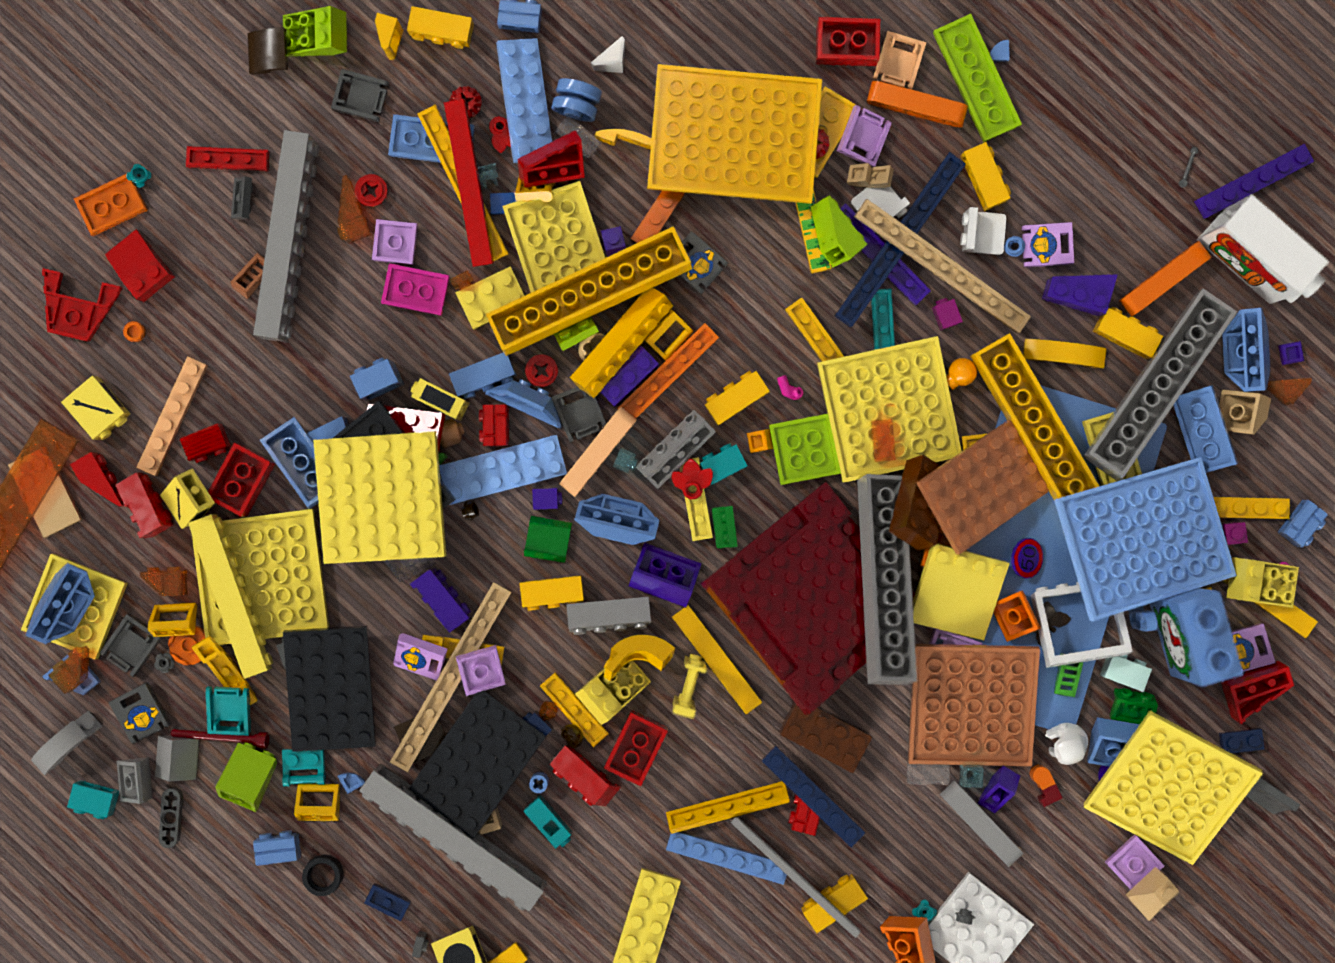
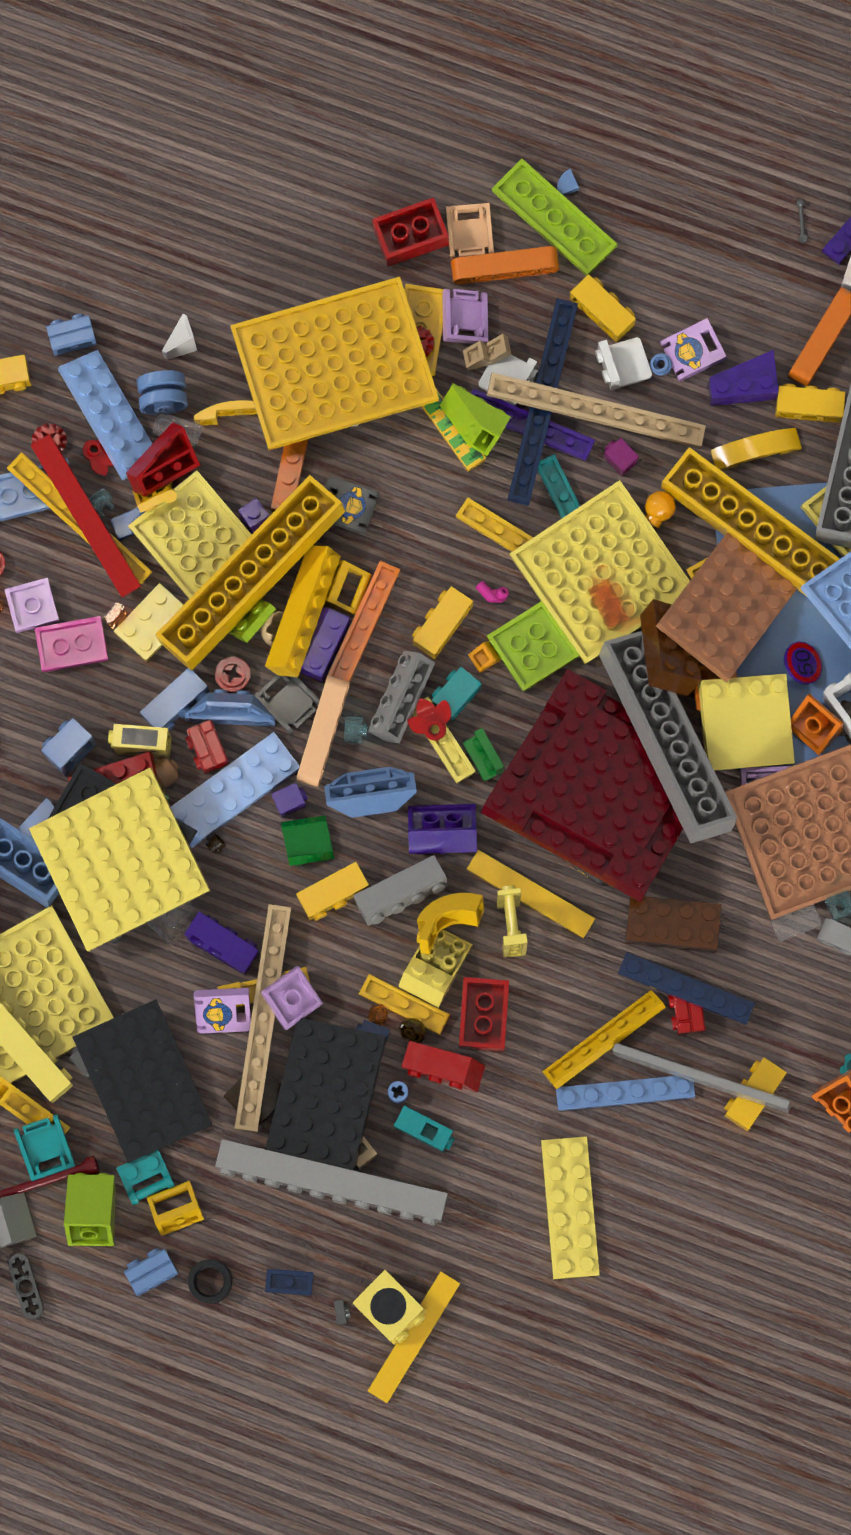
camera: 20 degrees left, 10 degrees down
(351, 781) = (201, 1172): medium blue tile -> none

